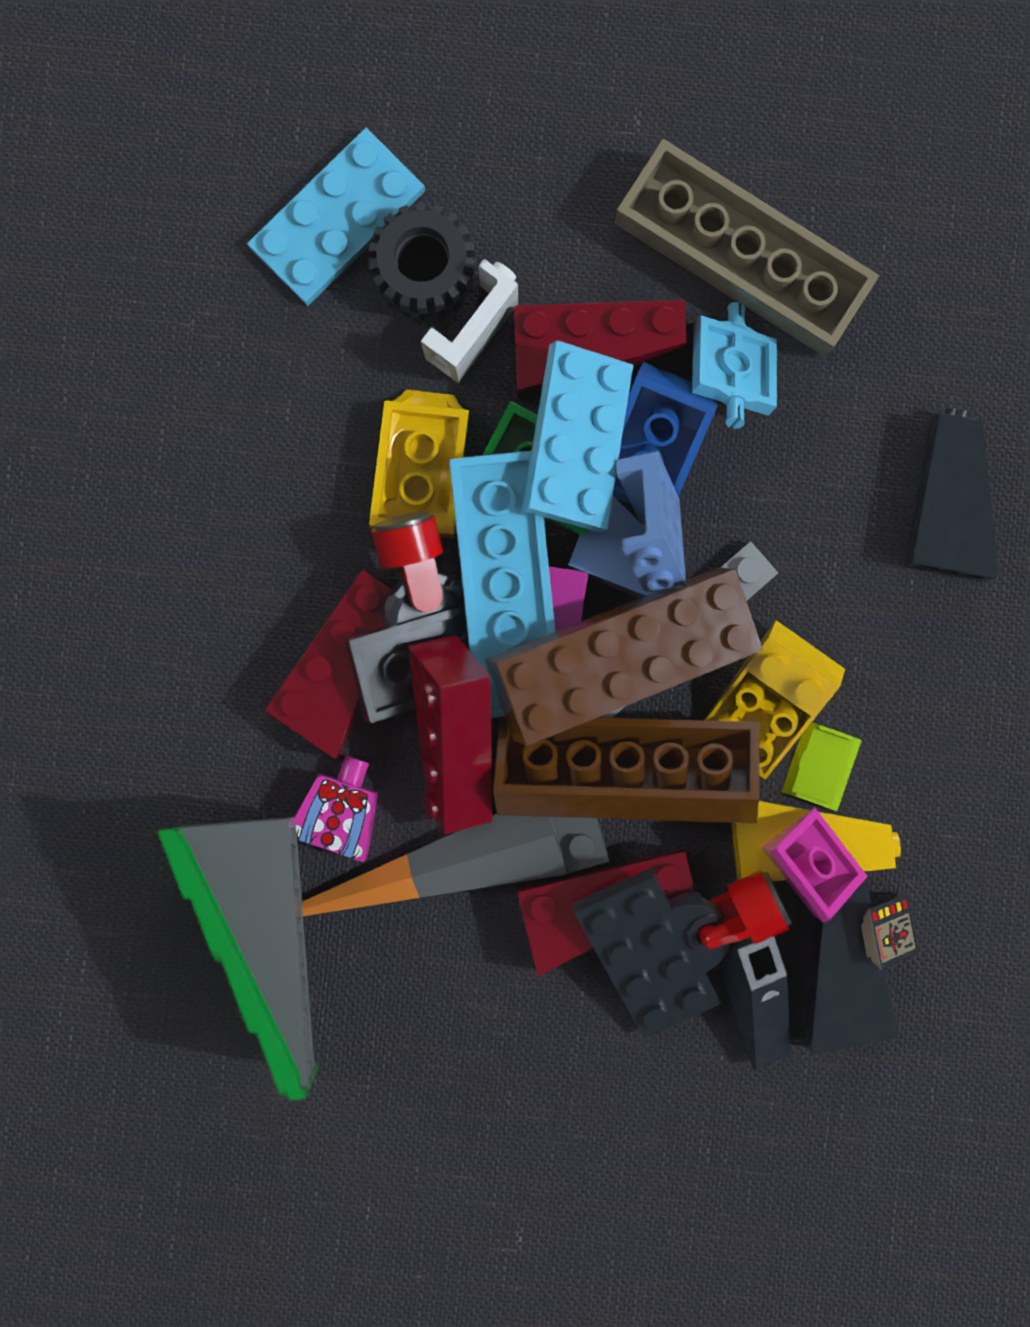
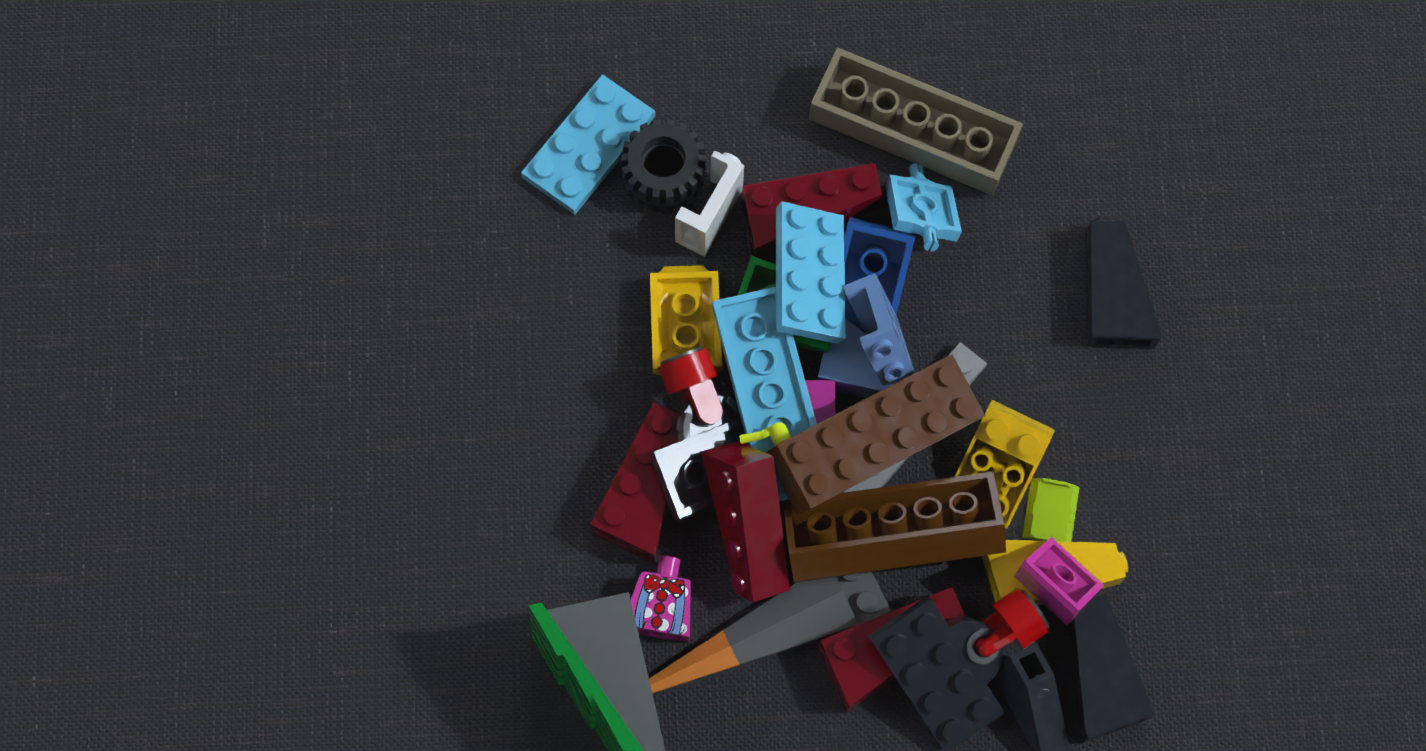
camera: 10 degrees left, 15 degrees down
(505, 637) = (777, 432): none -> neon yellow hand
(889, 932) = (1131, 629): piece -> none

